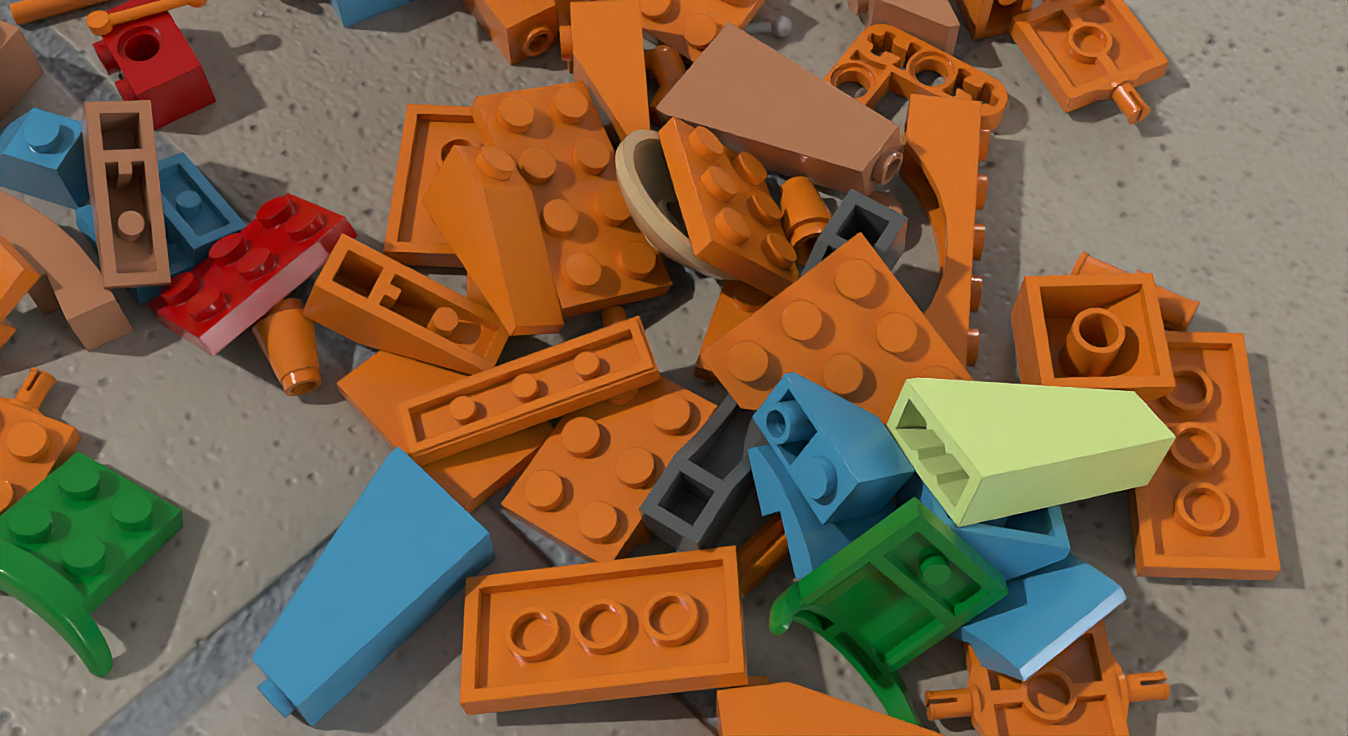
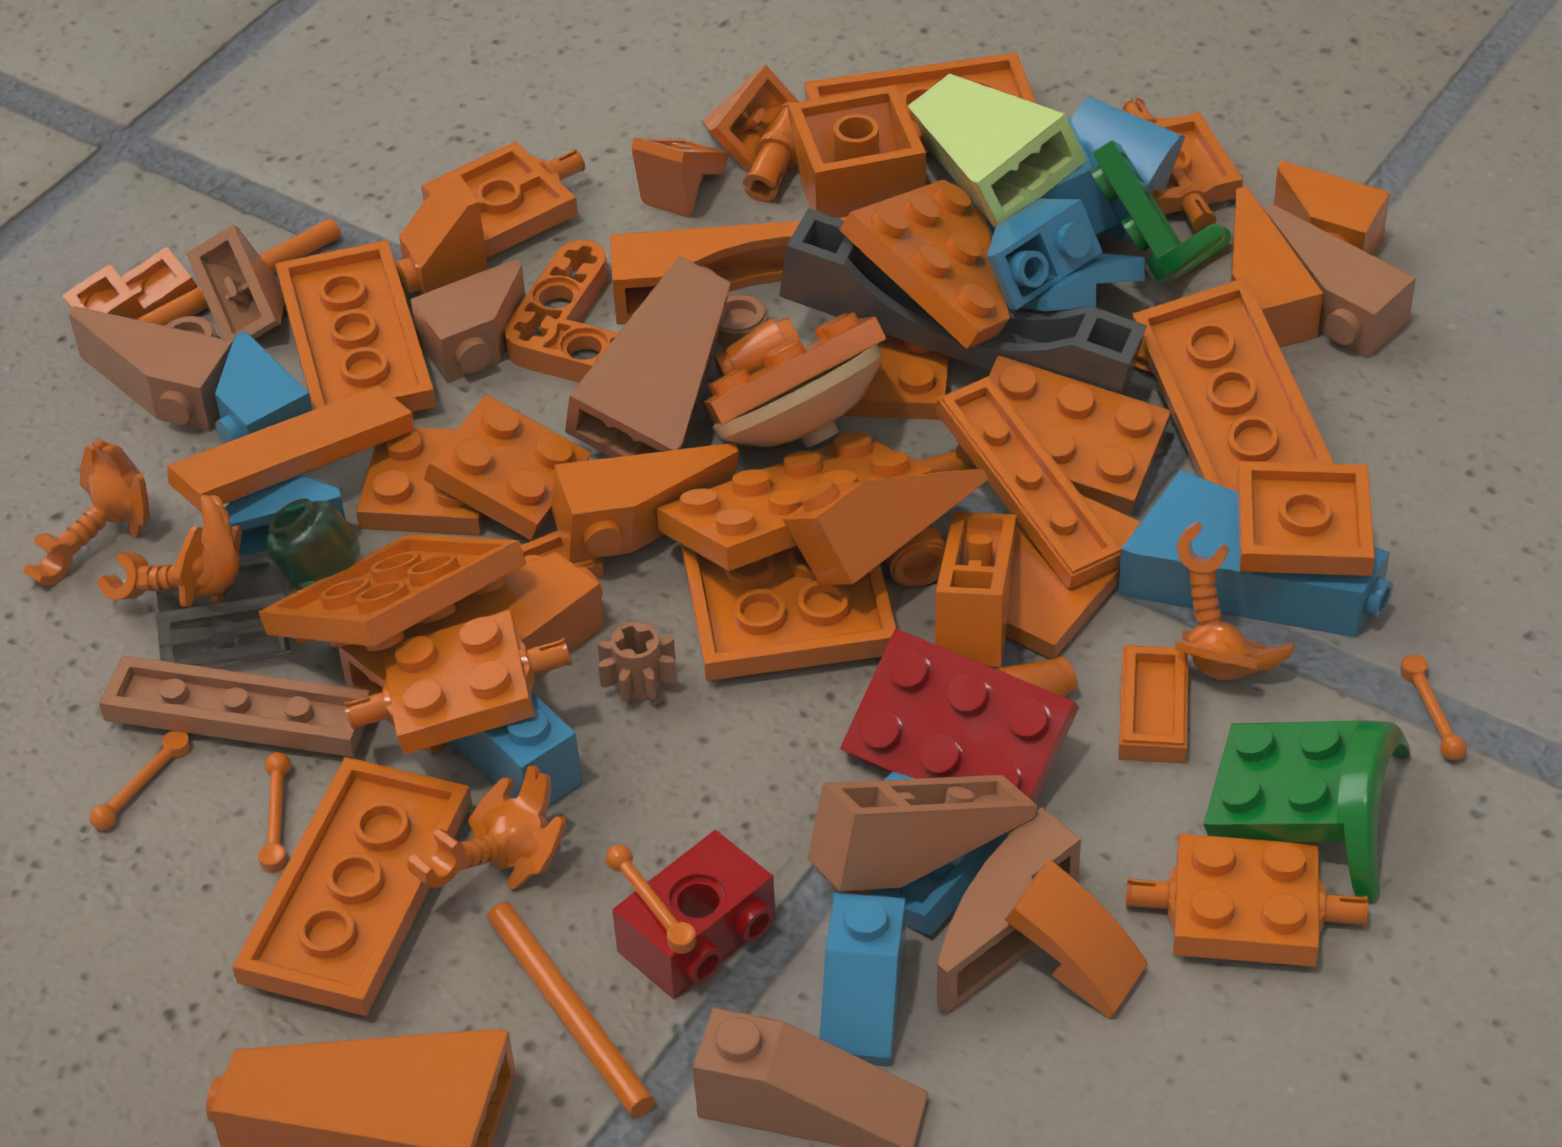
camera: 100 degrees left, 15 degrees down
(194, 718) = (1415, 670): none -> orange hinge
(247, 458) = (1153, 704): none -> orange tile
(276, 524) = (1215, 644): none -> orange piece
(346, 615) = (1304, 518): none -> orange plate
(434, 62) = (637, 661): none -> nougat gear
(1110, 184) = (672, 170): none -> orange slope
(1200, 274) = (748, 115): none -> orange slope

